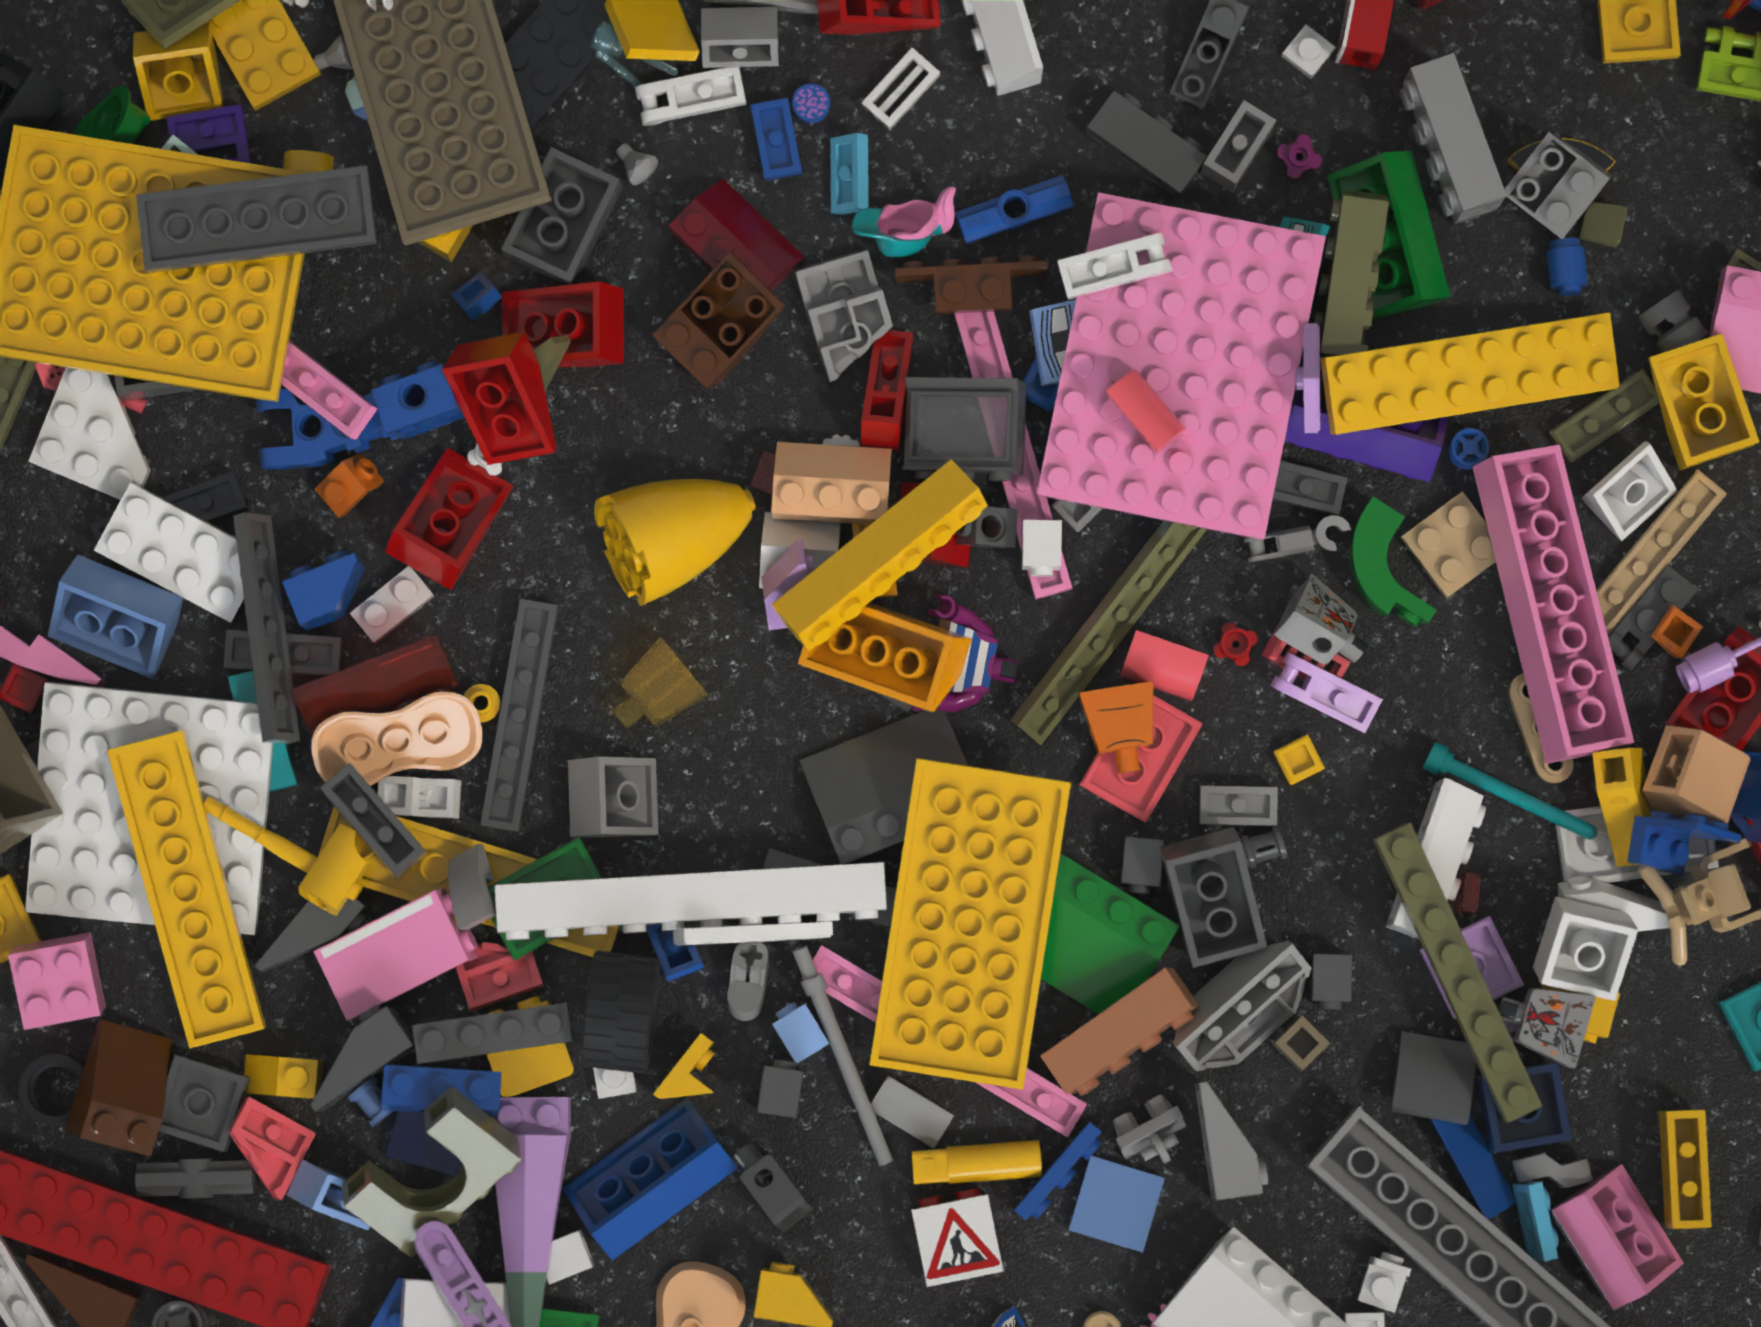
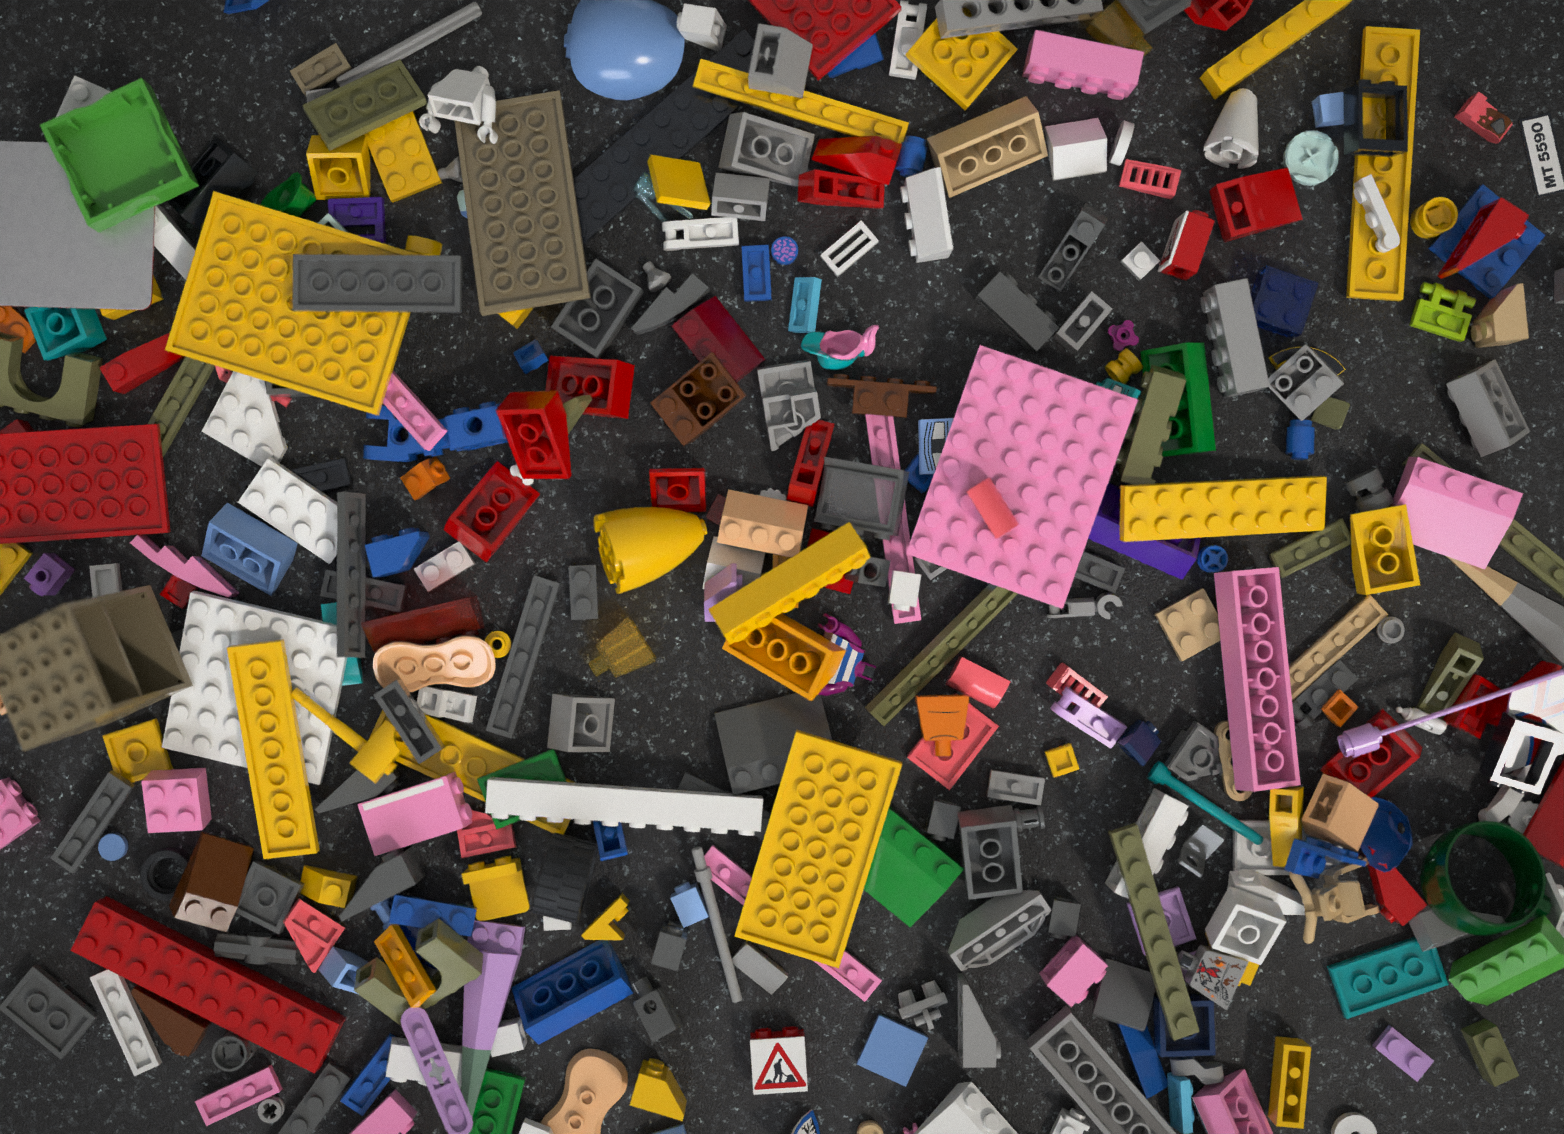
camera: 10 degrees right, 5 degrees up
(410, 1167) = (405, 966): none -> light orange plate
(469, 889) = (470, 779): light grey slope -> none
(492, 1033) = (473, 881): dark grey plate -> none
(592, 614) = (583, 592): none -> dark grey plate
(663, 199) = (671, 306): none -> dark grey slope
(707, 449) = (679, 489): none -> red slope
(745, 997) = (661, 849): light grey piece -> none
(752, 933) = (650, 833): white tile -> none
(978, 1163) = (799, 1010): yellow piece -> none
(1038, 201) = (935, 343): blue piece -> none
(1059, 1172) = (855, 1024): blue plate -> none
(1113, 266) = (983, 400): white plate -> none
(1120, 1031) = (911, 936): nougat brick -> none
(1225, 648) = (1030, 681): red plate -> none
(1300, 1043) = (1035, 959): dark tan brick -> none
(1306, 199) = (1123, 367): none -> yellow wheel
(1309, 378) = (1112, 499): lavender plate -> none
(1320, 623) = (1091, 669): light grey torso -> none
(1356, 1049) = (1073, 971): none -> bright pink brick
(1370, 566) = (1131, 627): green arch -> none
(1402, 715) = (1139, 741): none -> dark blue slope
(1469, 893) = (1168, 870): clear red tile -> none
(1484, 724) = (1194, 753): none -> dark grey plate
(1511, 80) = (1282, 301): none -> clear blue brick
(1511, 854) = (1199, 848): none -> dark grey bracket
(1631, 491) = (1320, 603): white slope -> none
(1734, 514) = (1390, 630): none -> light grey plate

